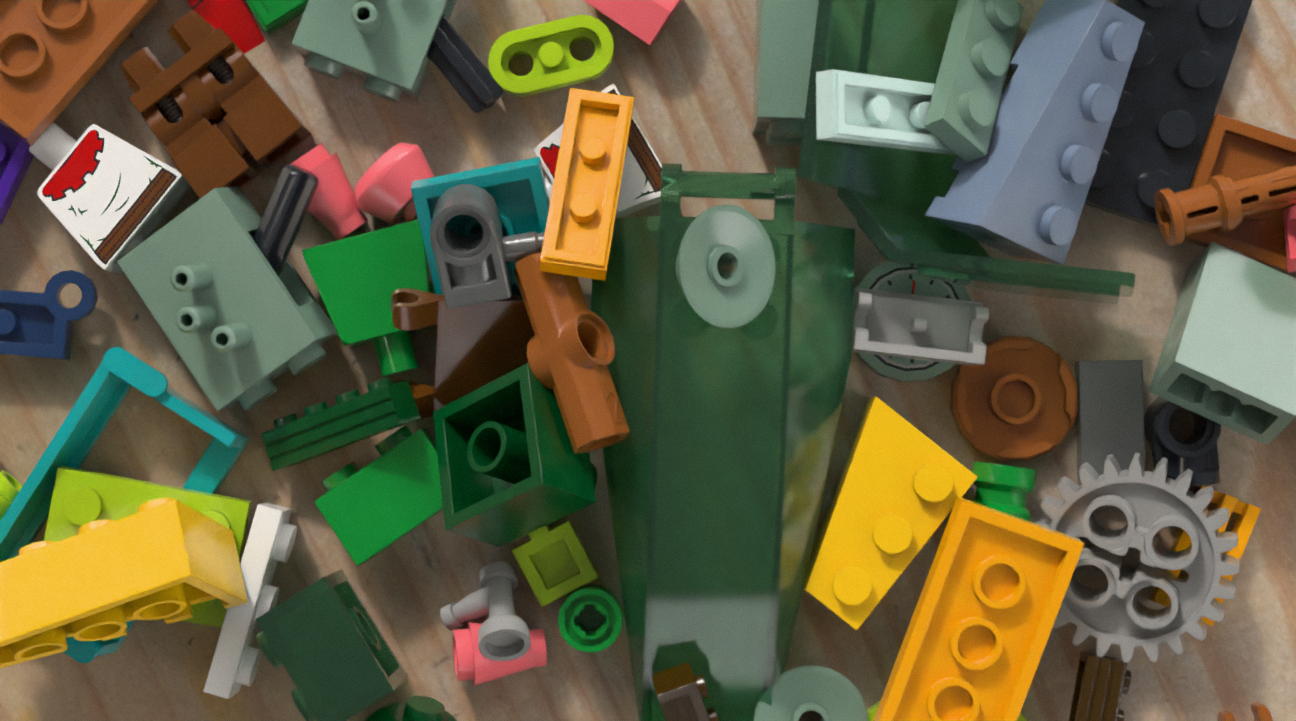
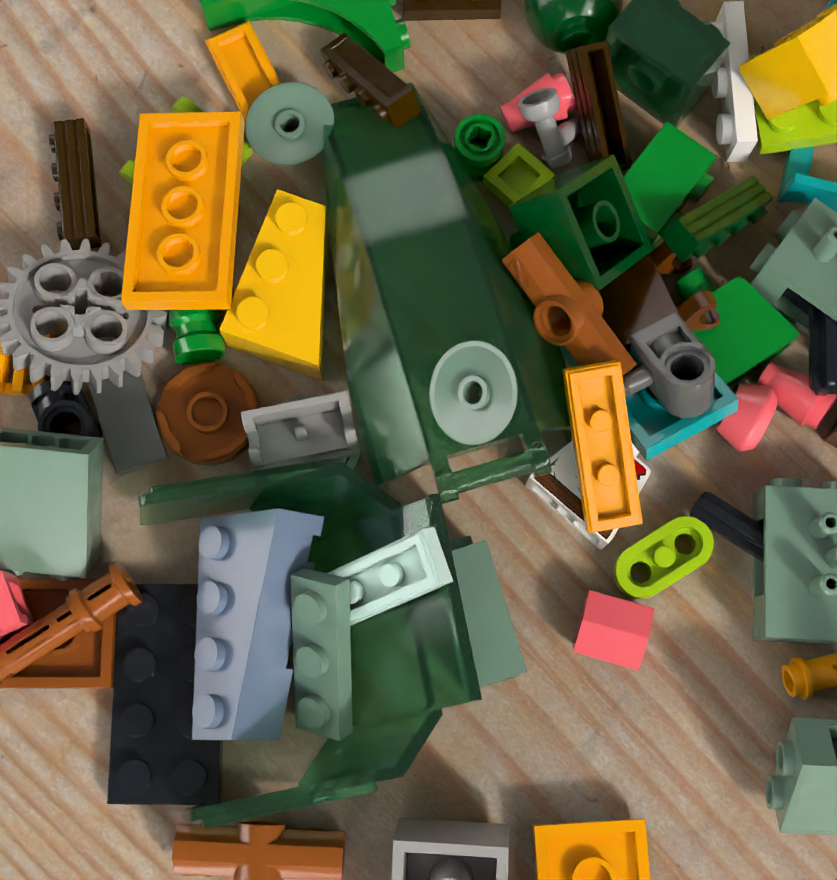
camera: 160 degrees right, 10 degrees down
(431, 612) = (598, 103): none -> dark brown piece

